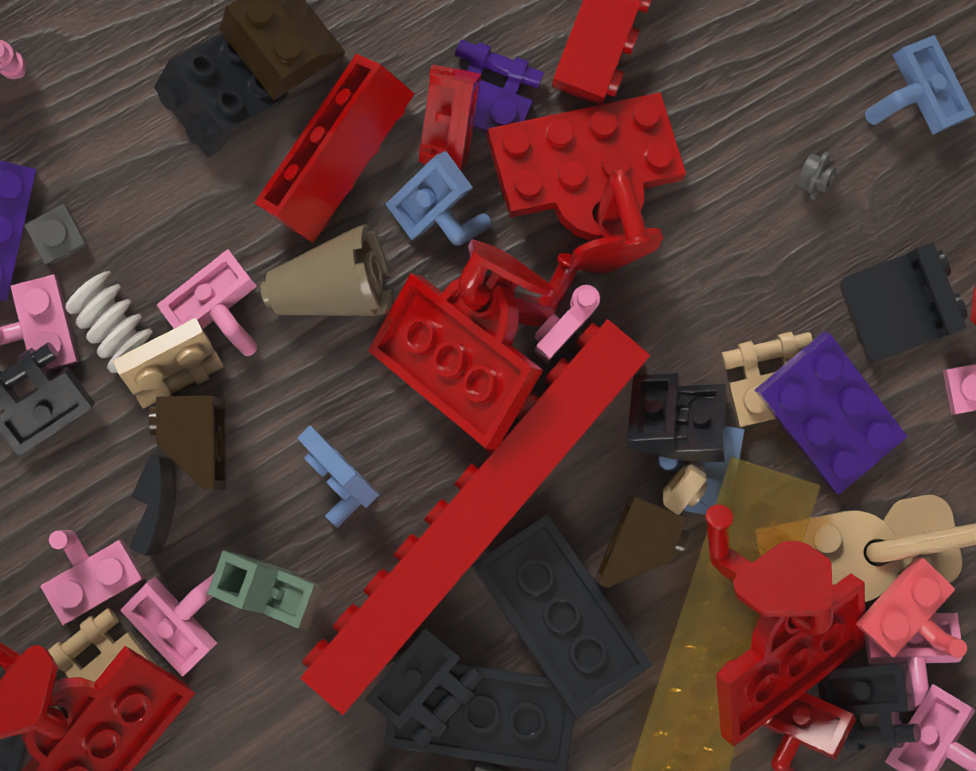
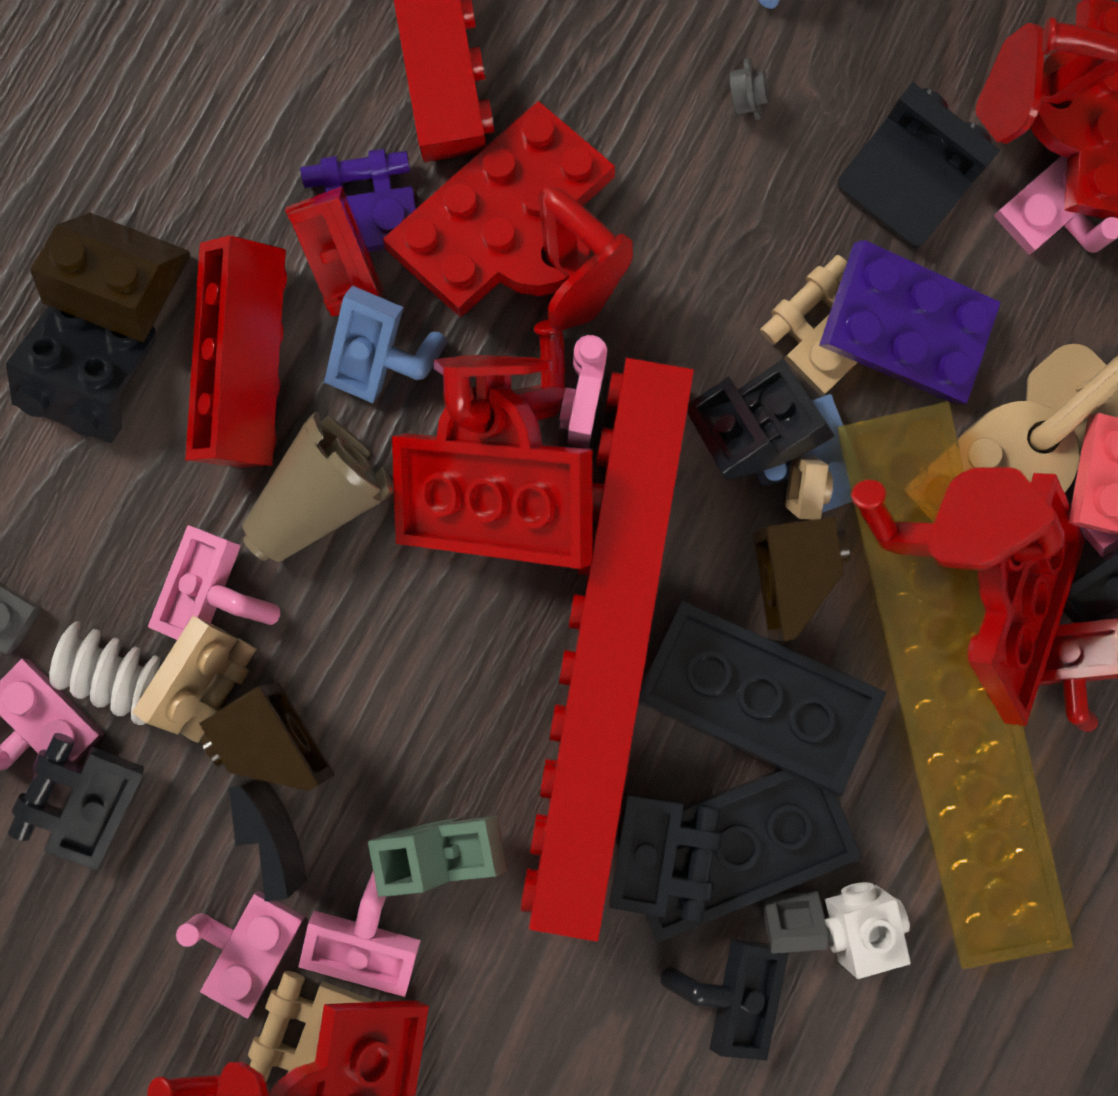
camera: 30 degrees left, 0 degrees up
(344, 480) = (451, 690): medium blue plate -> none

